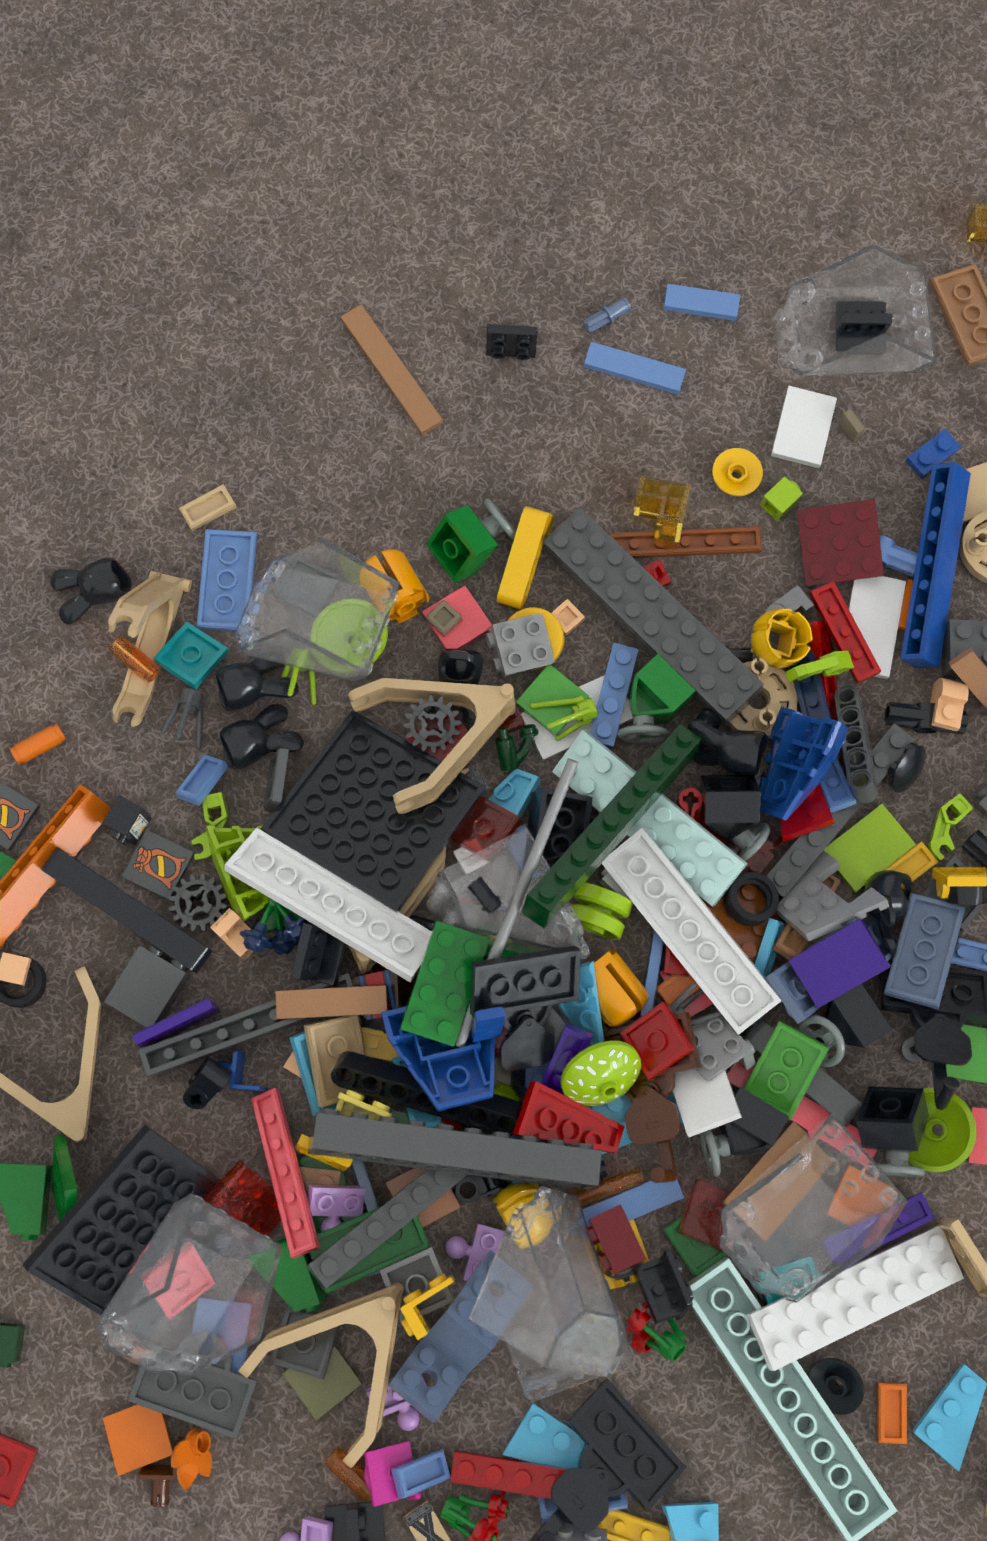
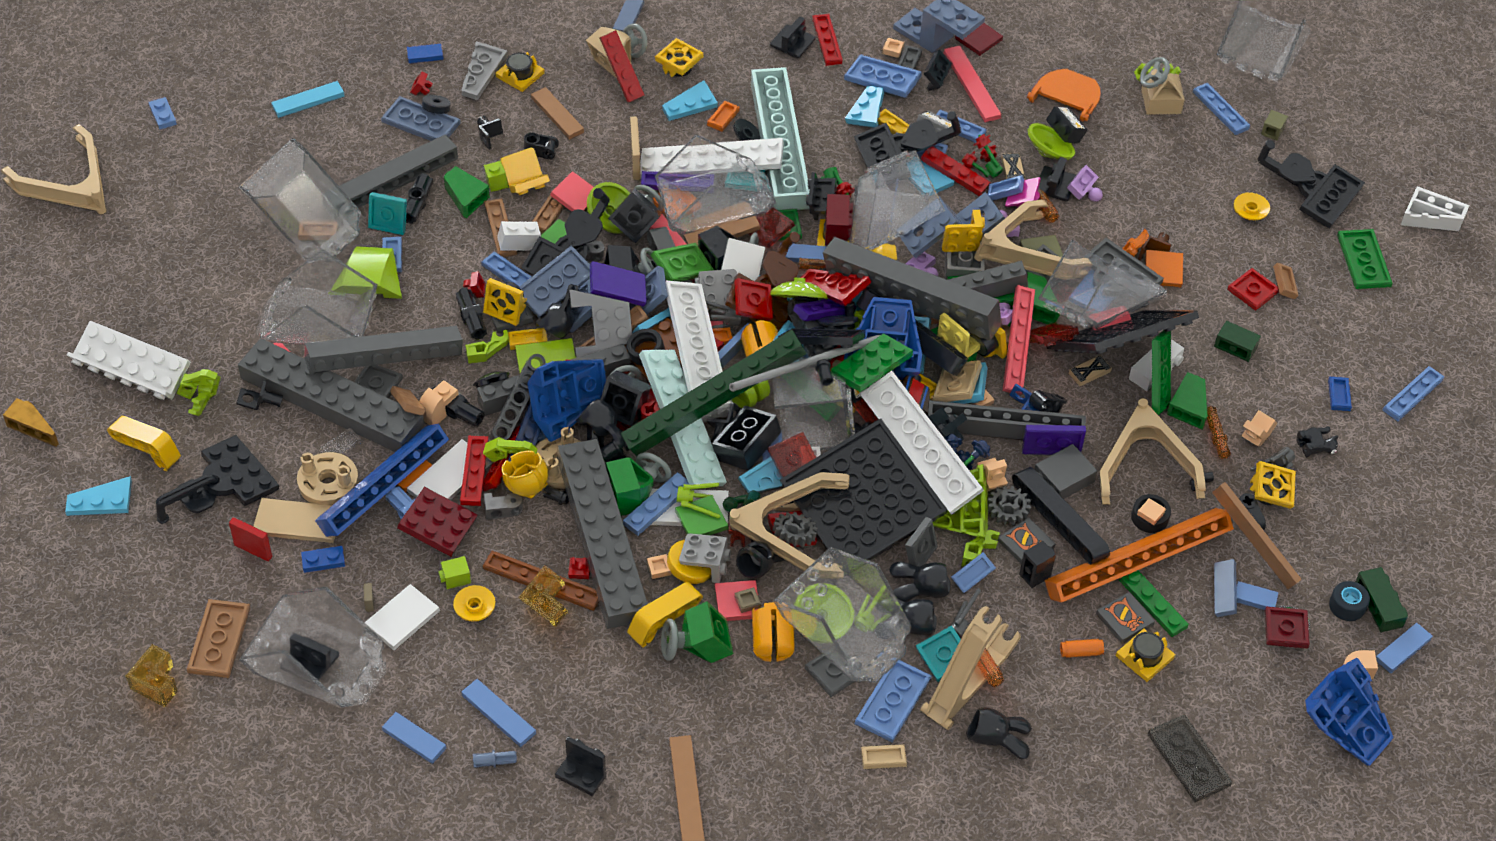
camera: 150 degrees left, 25 degrees down
(331, 1001) = (947, 398): medium nougat tile -> none
(488, 1024) = (857, 322): blue tile -> none

